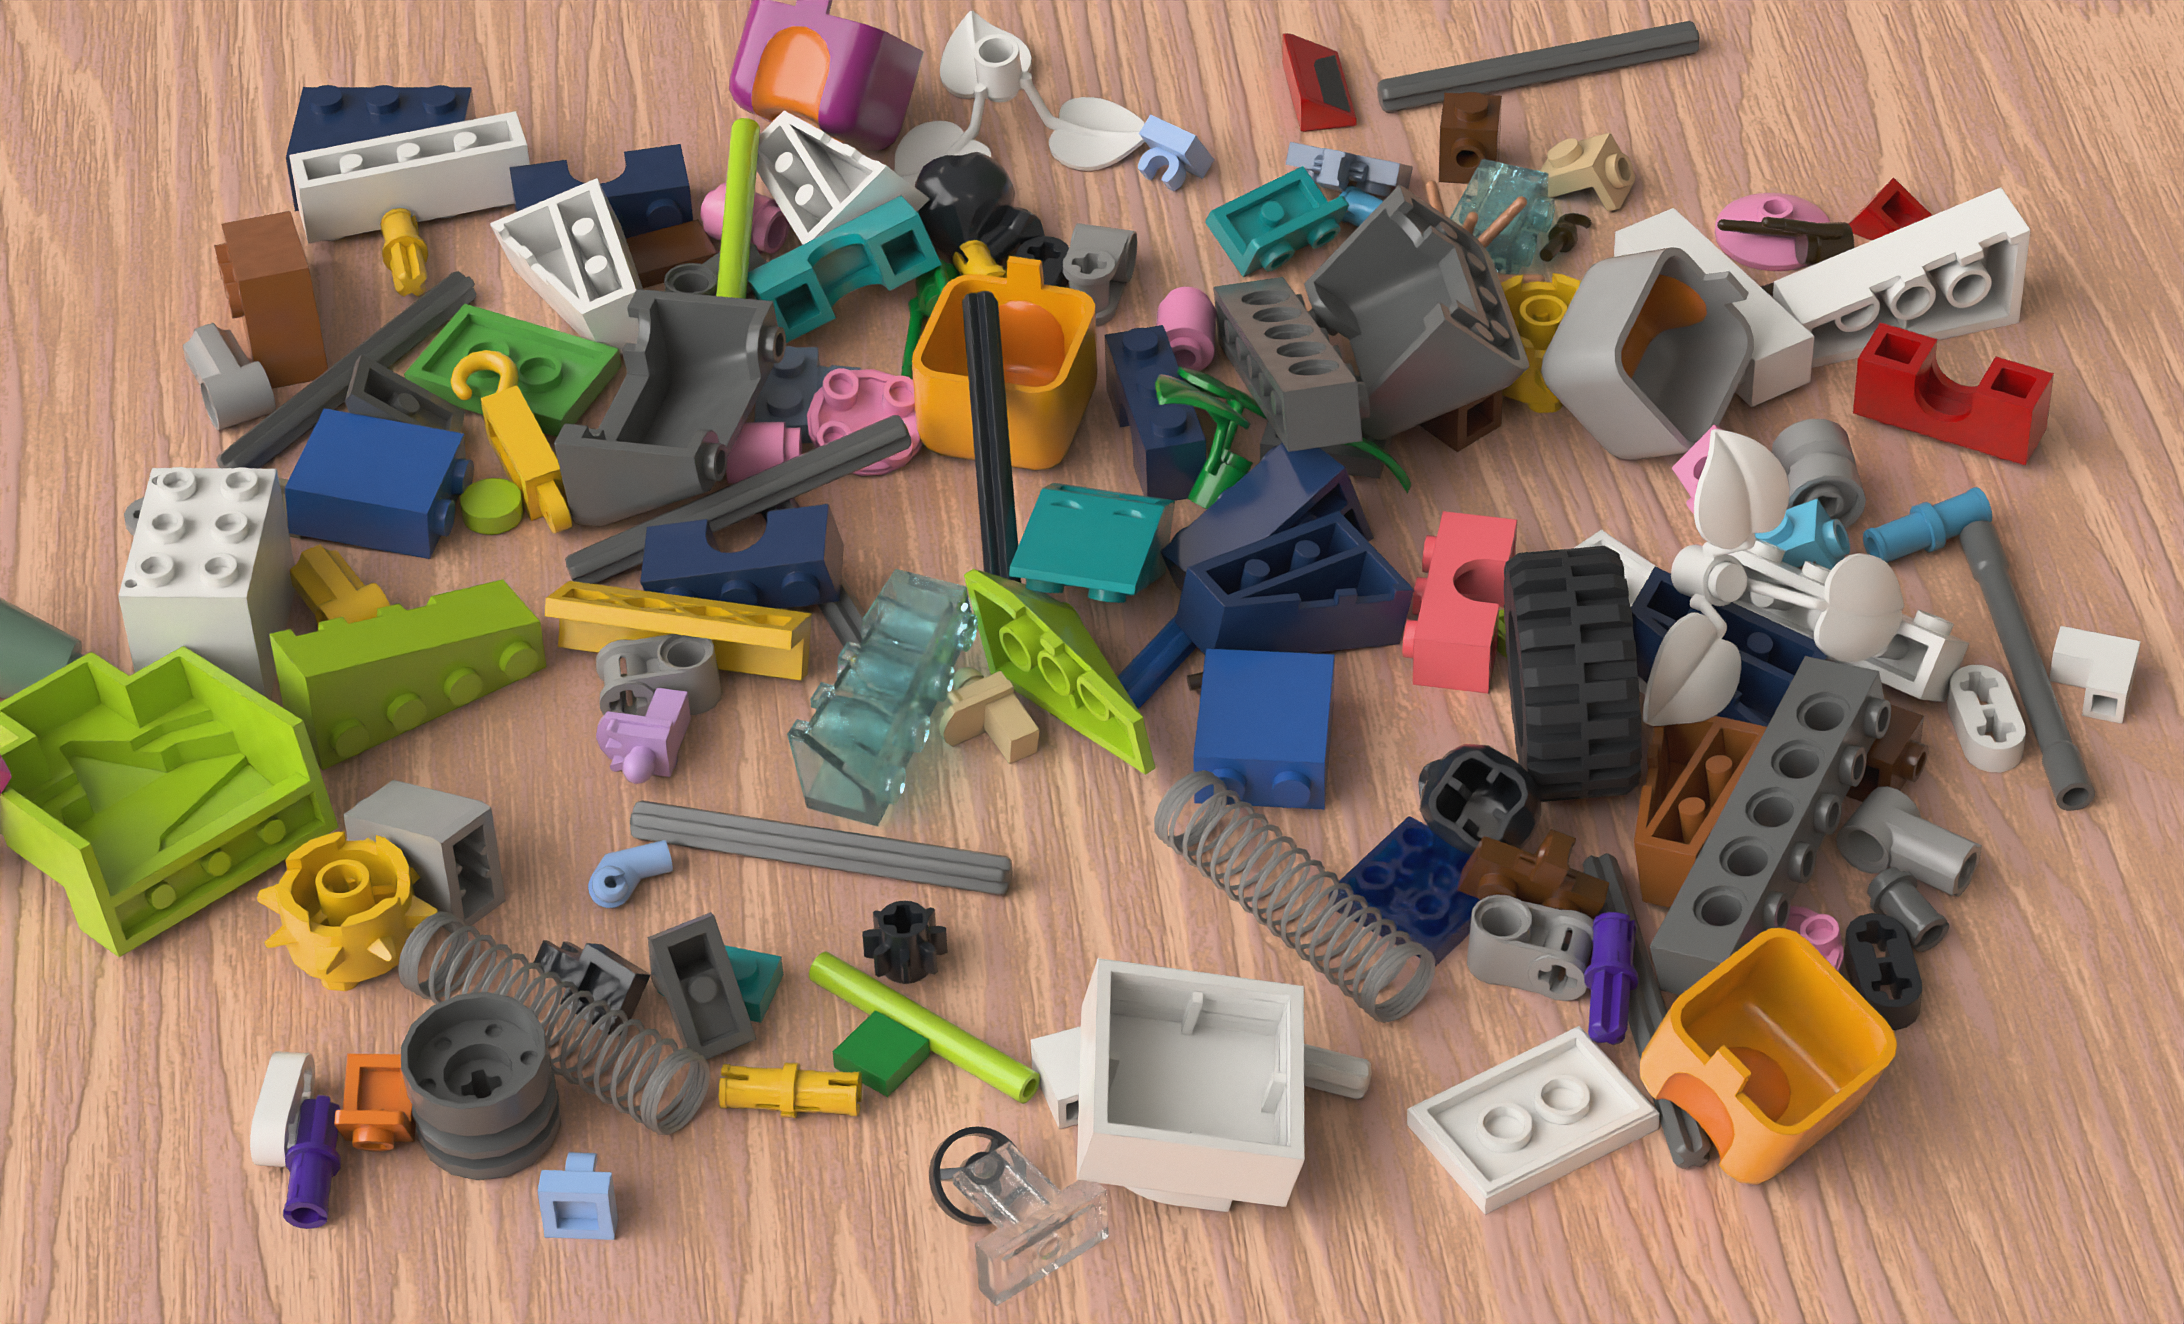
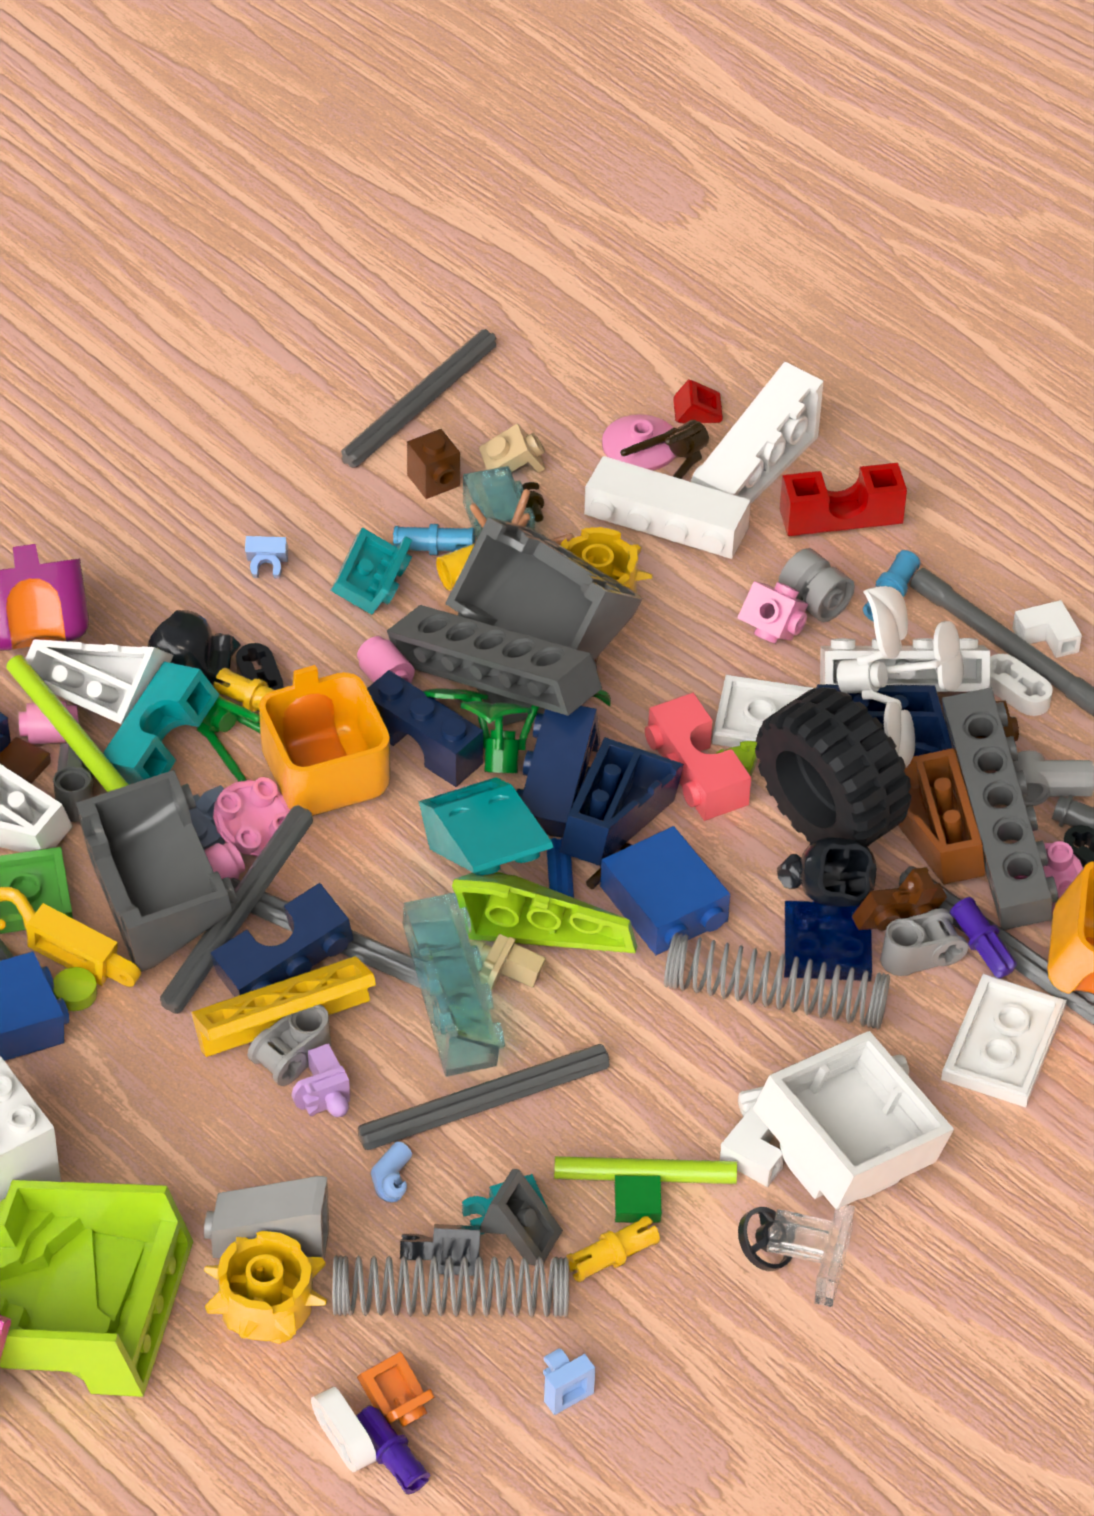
camera: 40 degrees left, 5 degrees up
(333, 587) = (63, 1103): yellow piece -> none
(404, 666) = (146, 1114): lime wedge -> none
(481, 1085) = (460, 1346): dark grey wheel -> none
(905, 942) = (594, 1126): black gear -> none
(990, 433) = (380, 798): black axle -> none
(995, 65) = (197, 562): white plant -> none
(1101, 265) = (292, 646): light grey piece -> none
(1316, 85) = (301, 470): red slope -> none
(1336, 168) = (384, 516): sand blue hinge -> none
(1650, 352) = (685, 555): light grey piece -> none
(1809, 536) = (834, 623): medium azure bracket -> none

